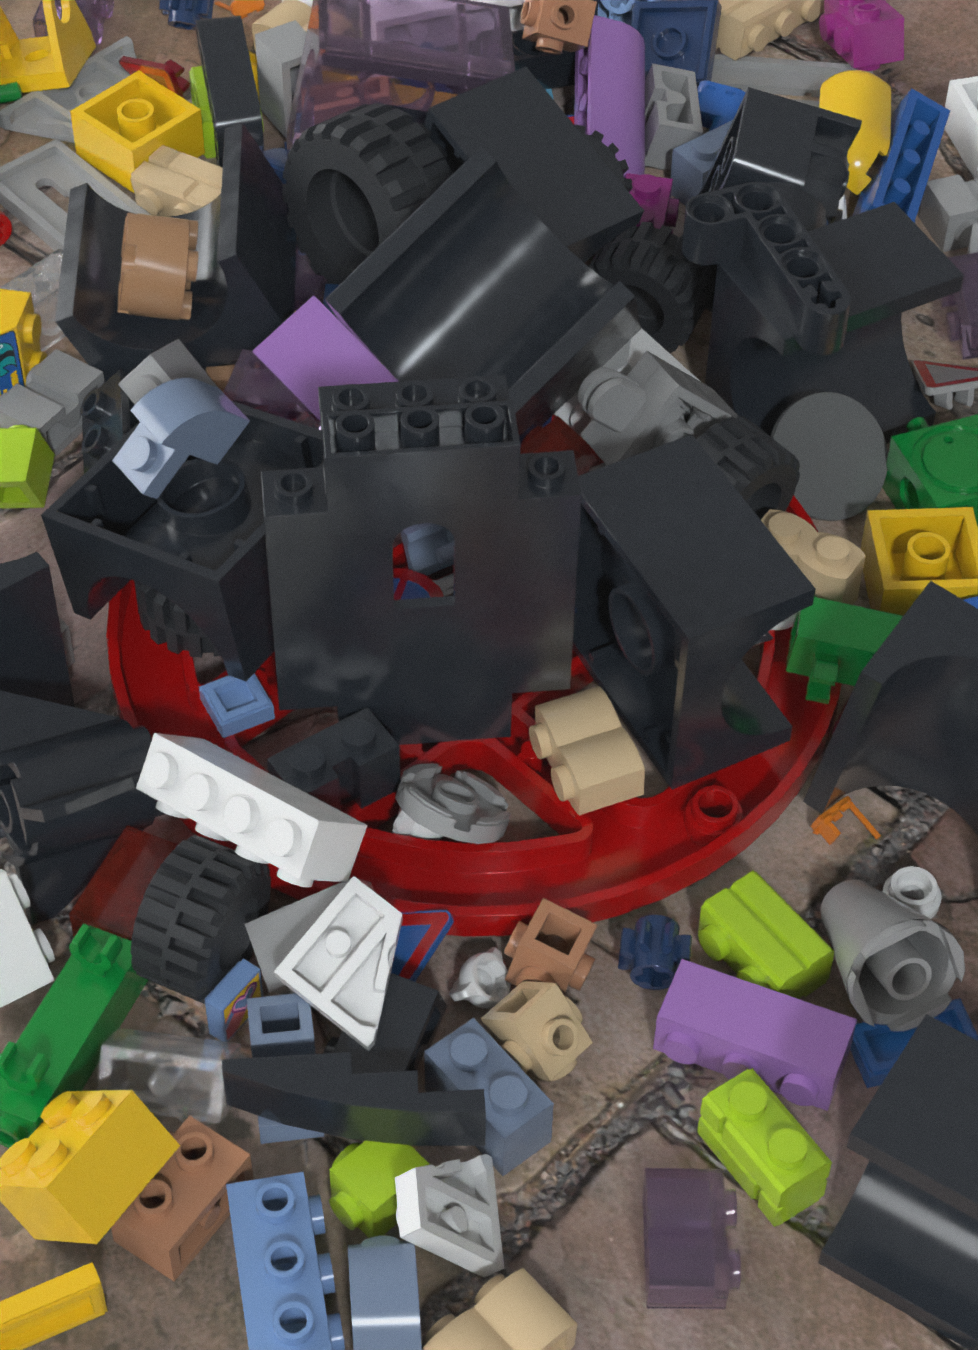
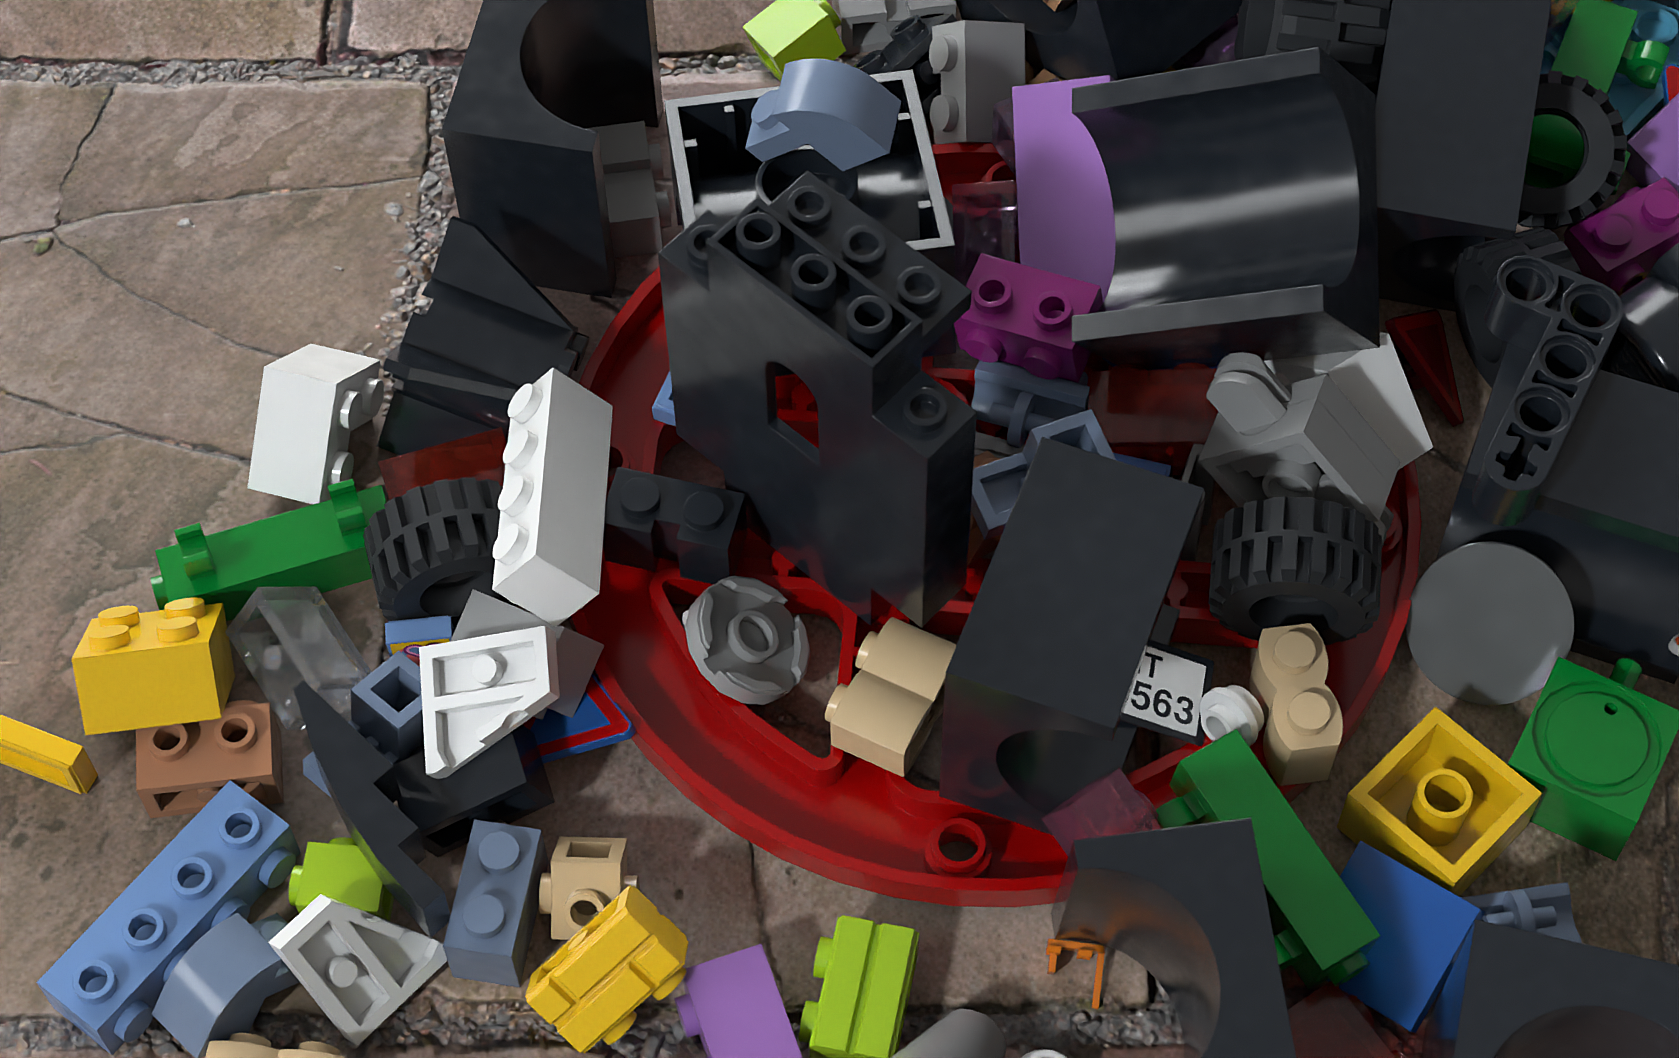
camera: 50 degrees right, 10 degrees up
(482, 980) = (618, 808): white piece -> none
(551, 948) = (682, 816): nougat brick -> none
(618, 1055) = (609, 971): none -> yellow brick
(653, 951) = (765, 916): dark blue gear -> none
(800, 706) = (1102, 809): none -> clear pink brick

